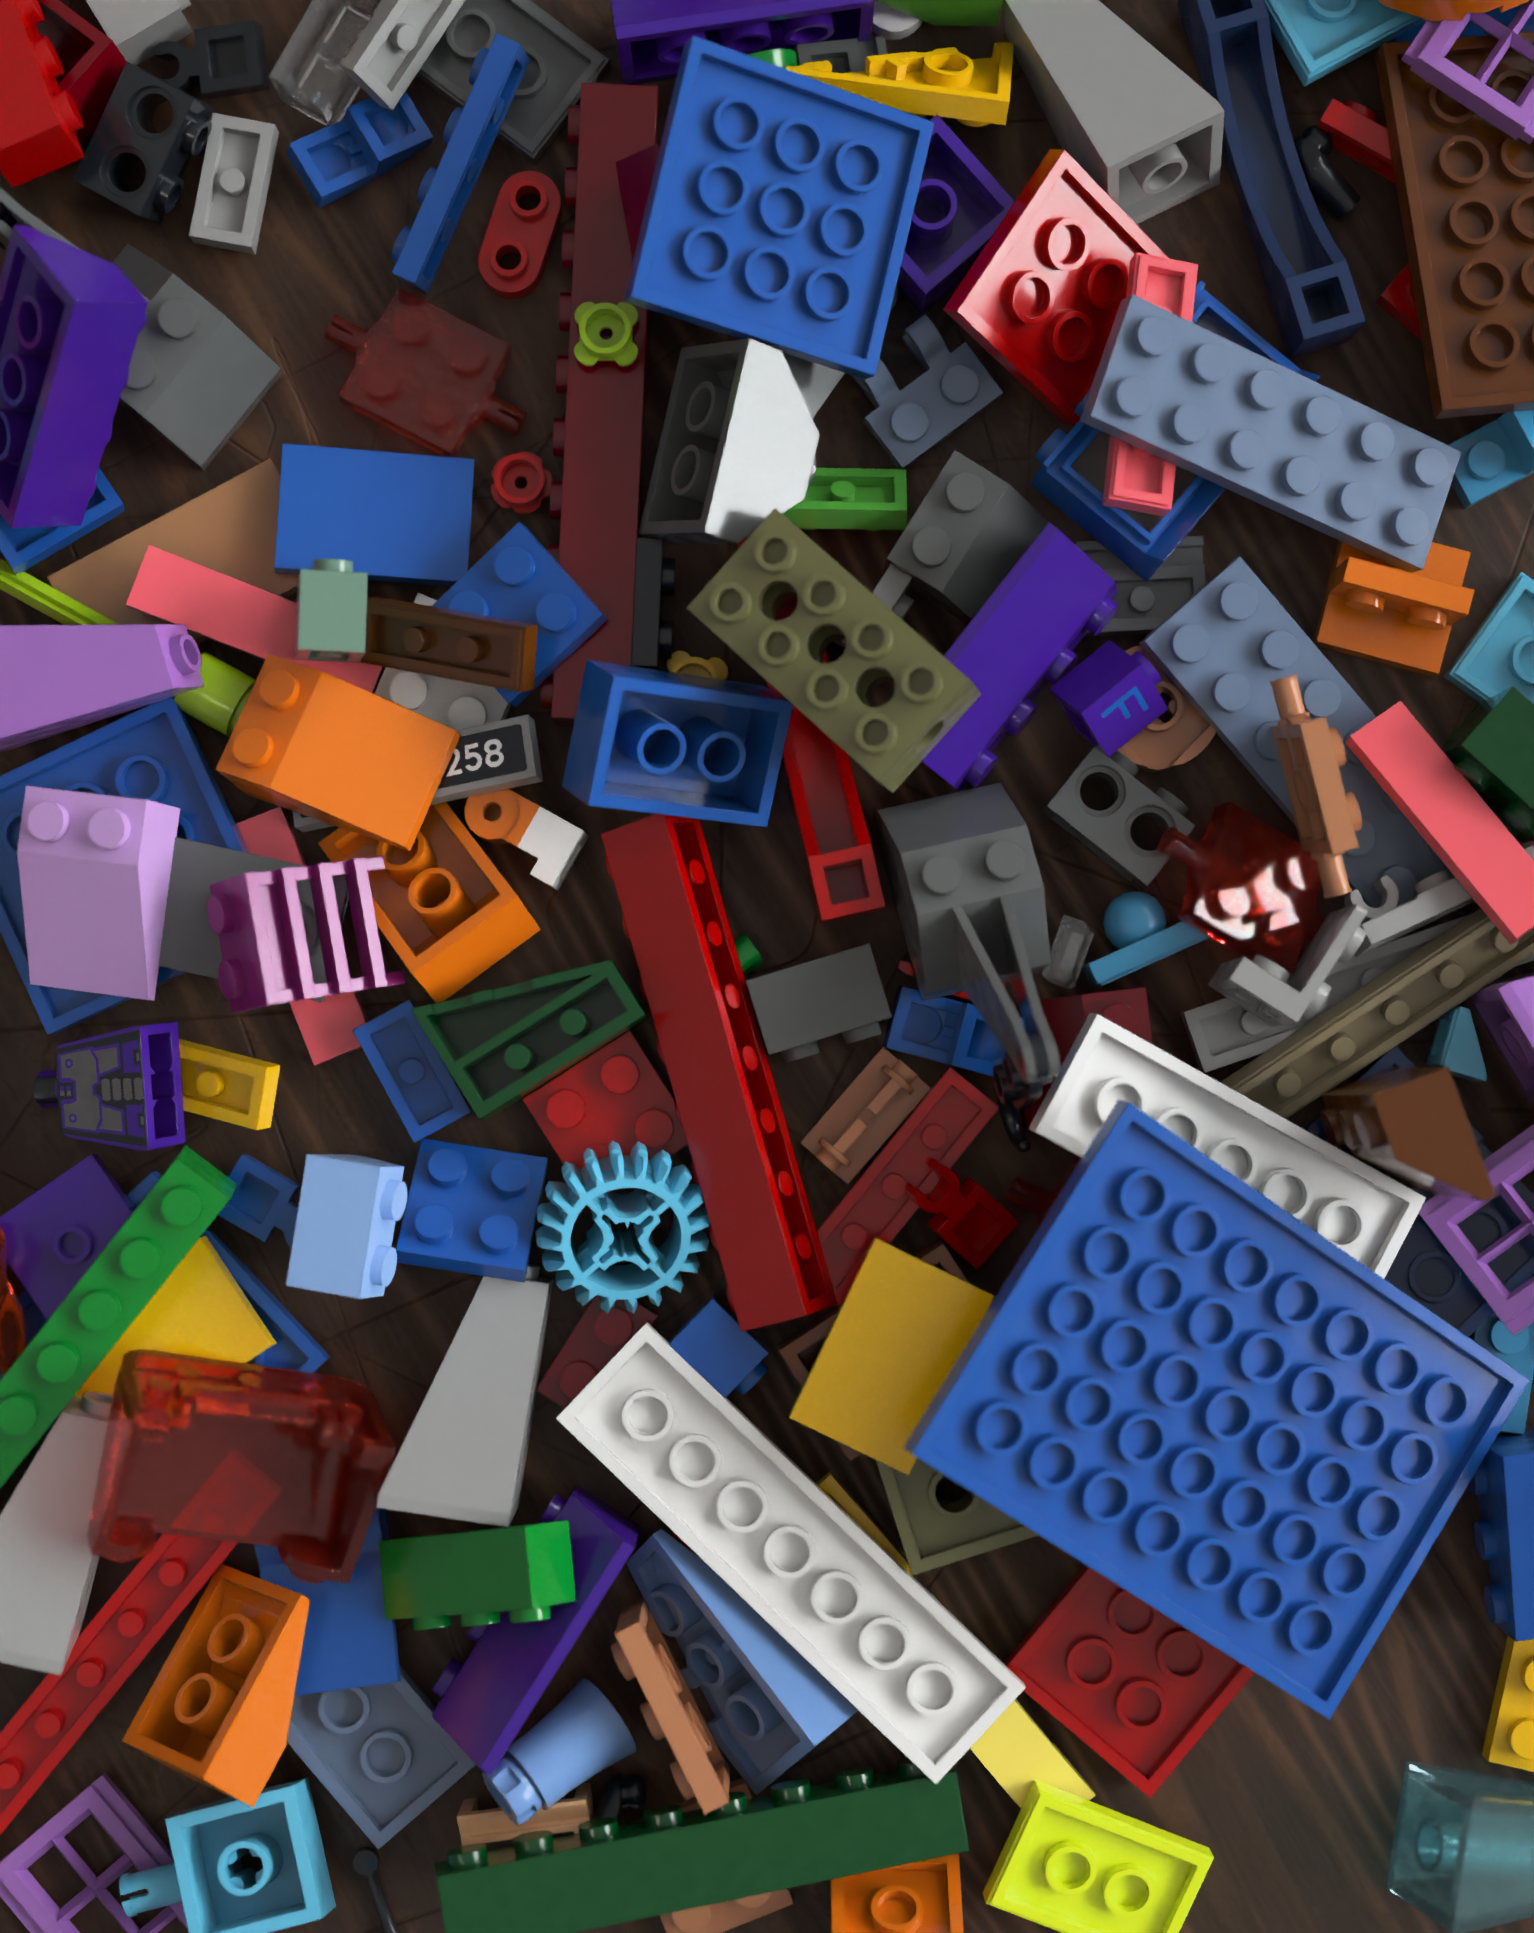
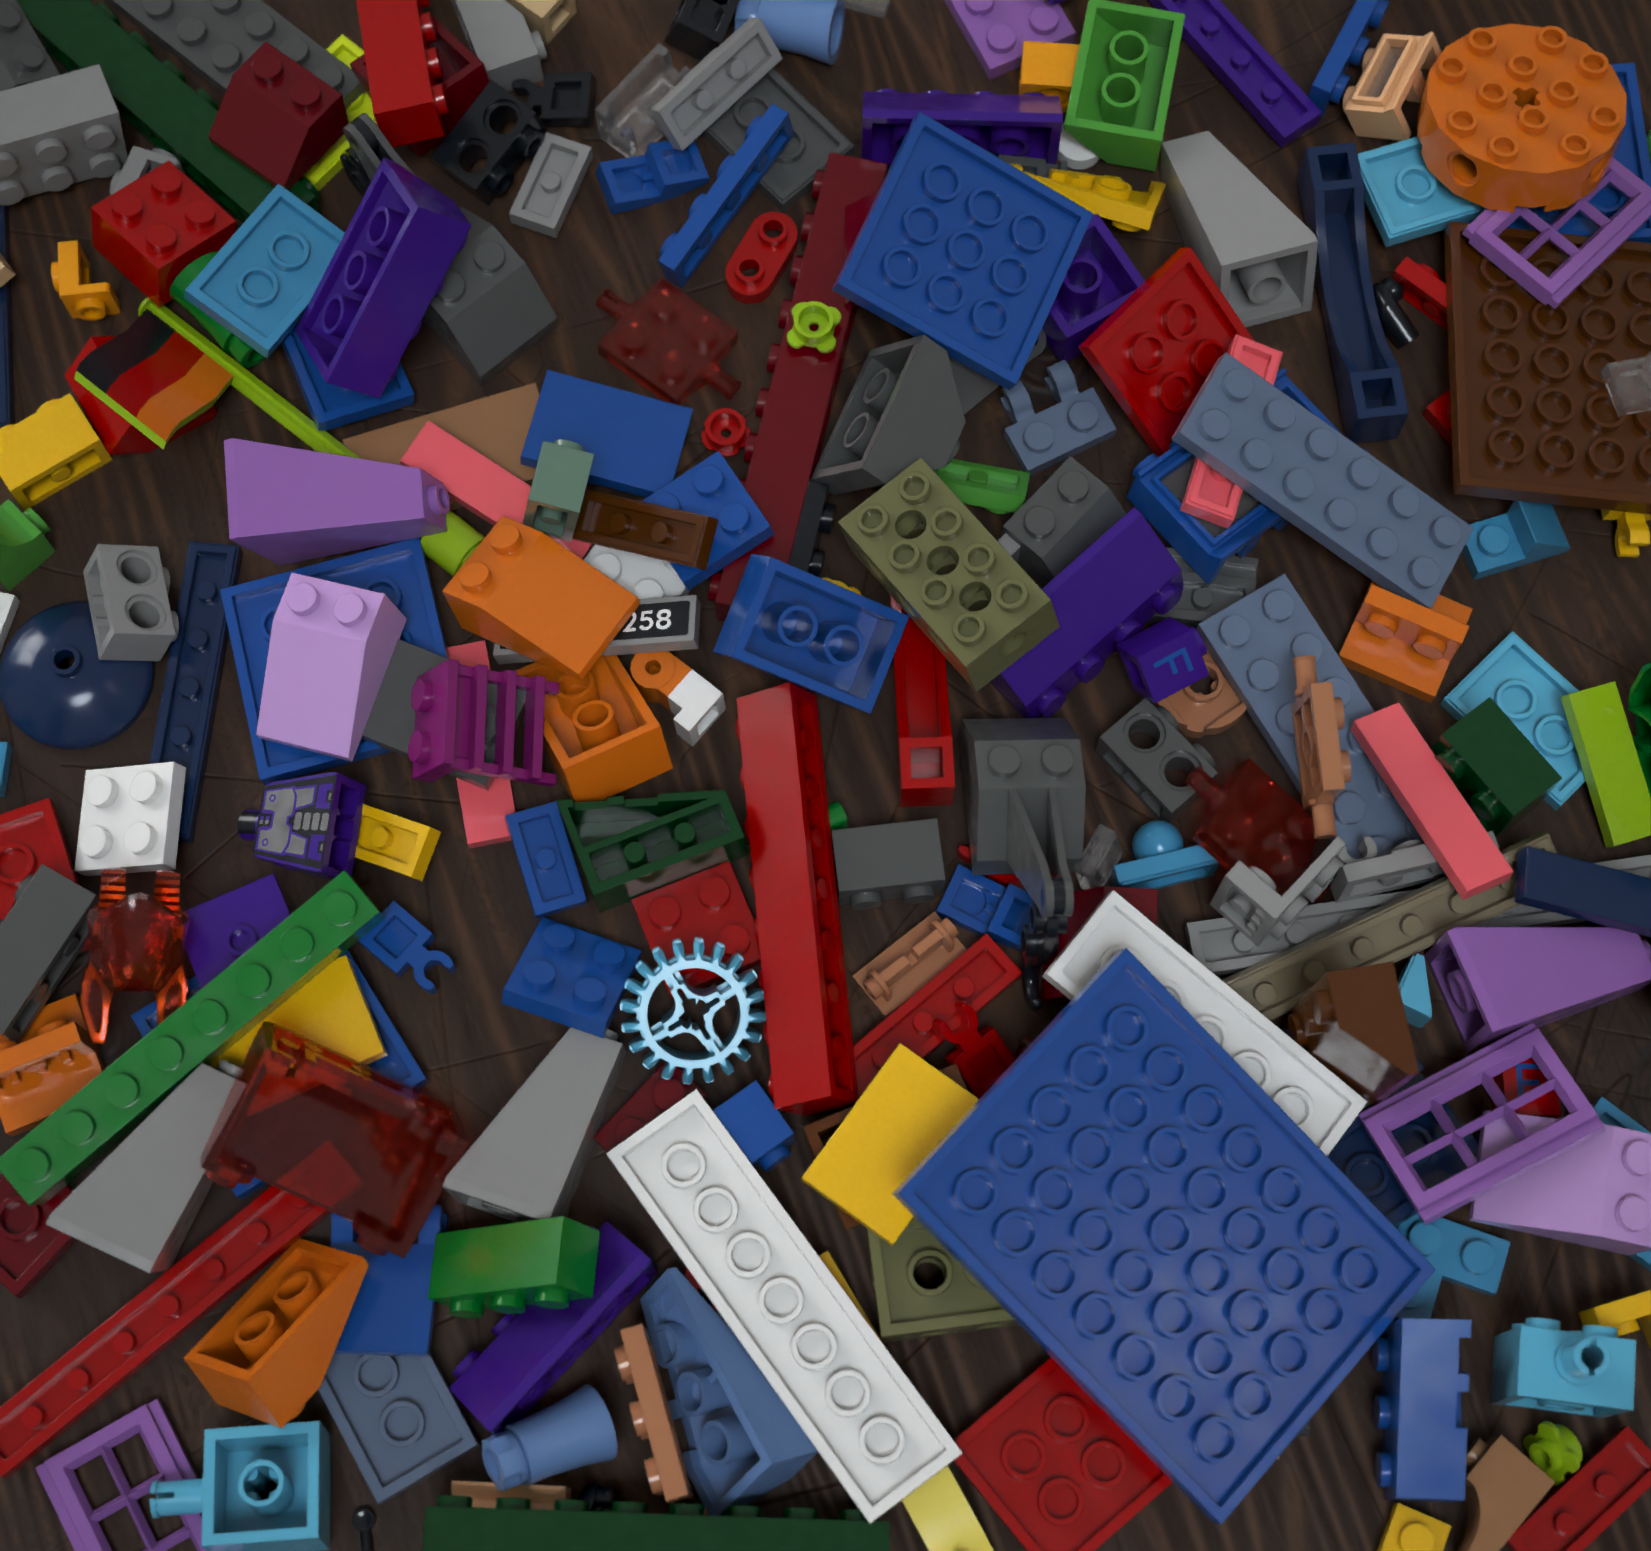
camera: 15 degrees right, 15 degrees down
(347, 1225) = (467, 960): light blue slope -> none

